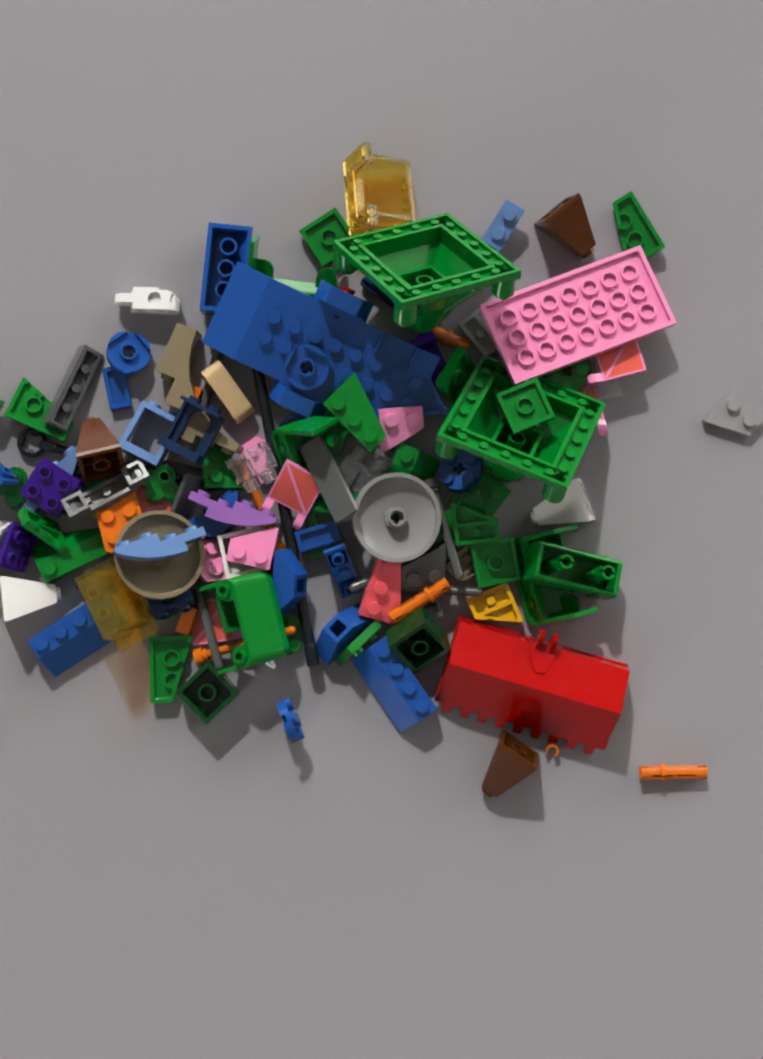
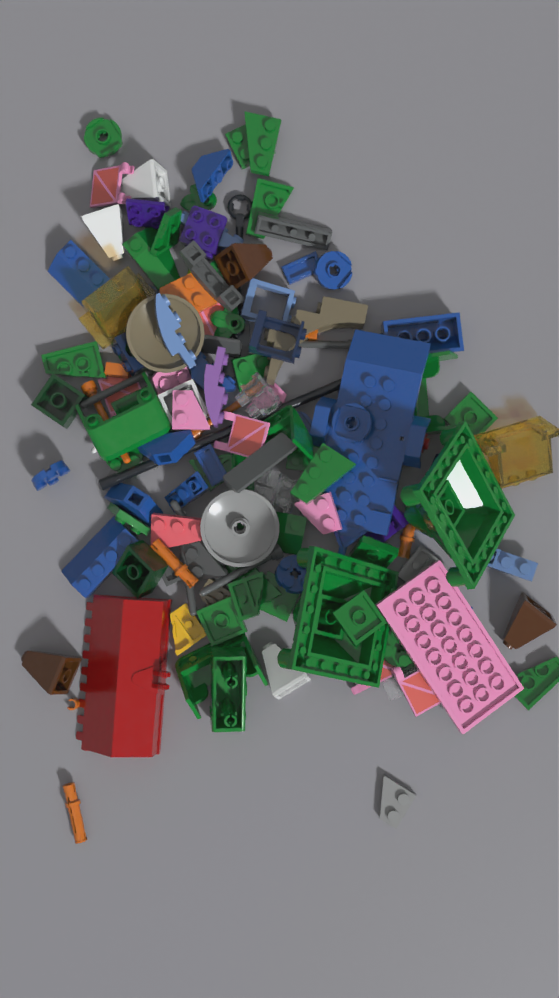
camera: 70 degrees right, 0 degrees up
(149, 301) = (381, 278): white piece -> none
(227, 392) = (318, 361): tan beam -> none

